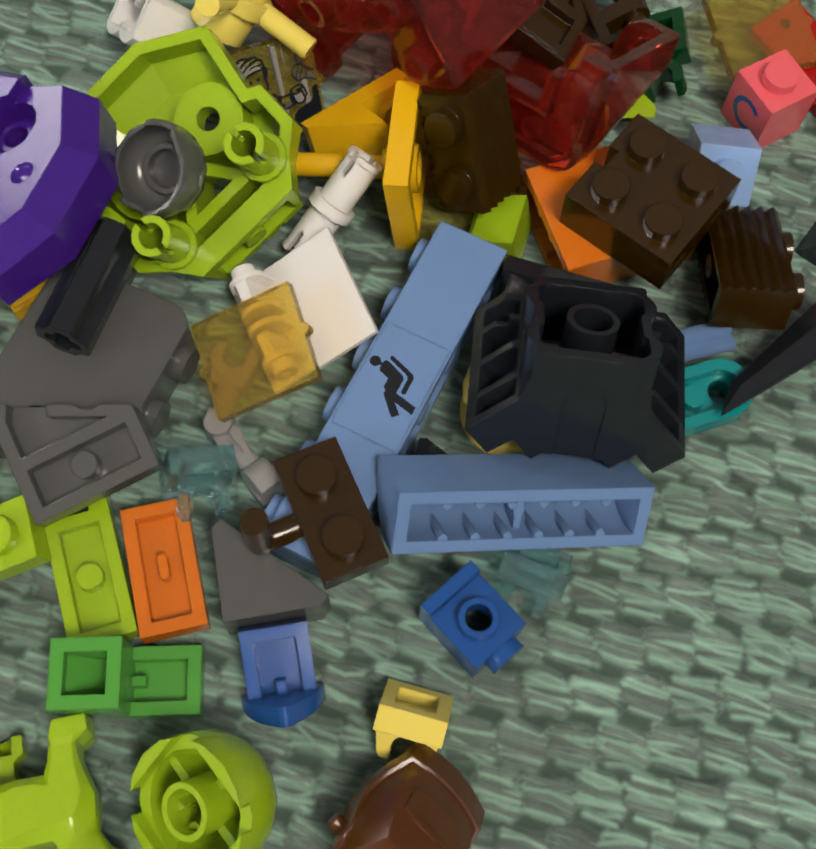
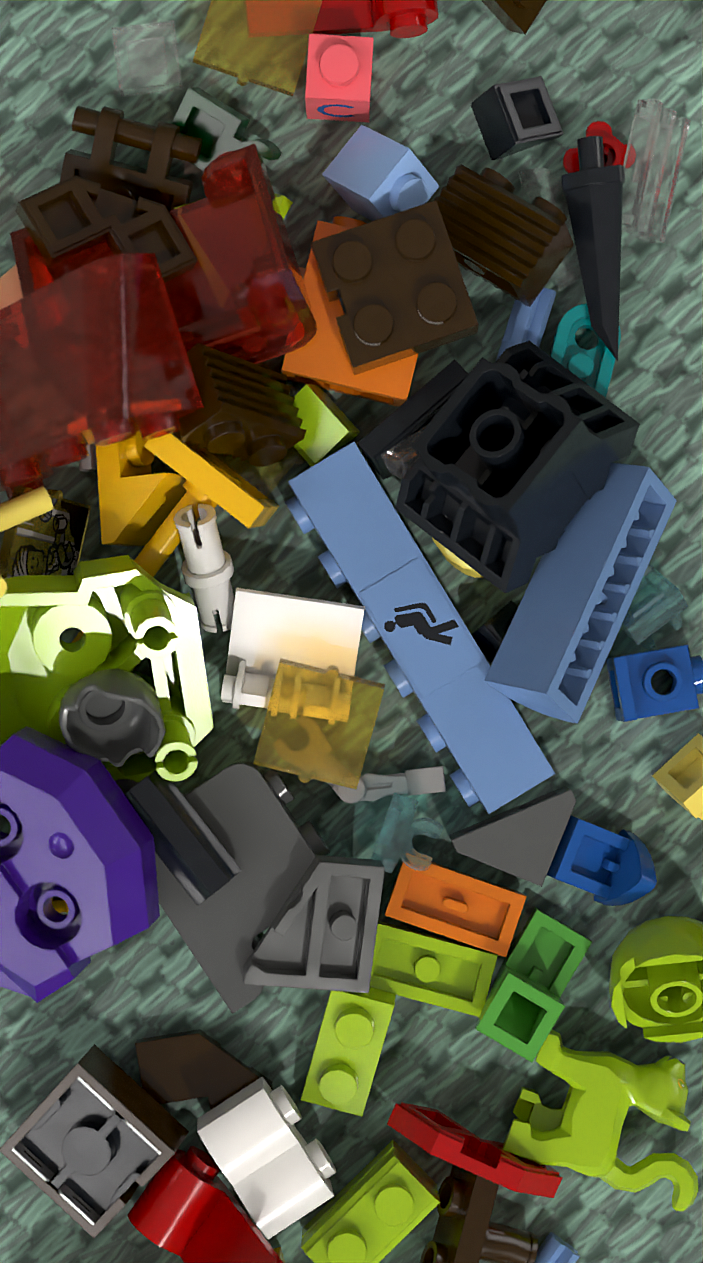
camera: 55 degrees left, 20 degrees up
(324, 513) = (507, 754): dark brown plate -> none

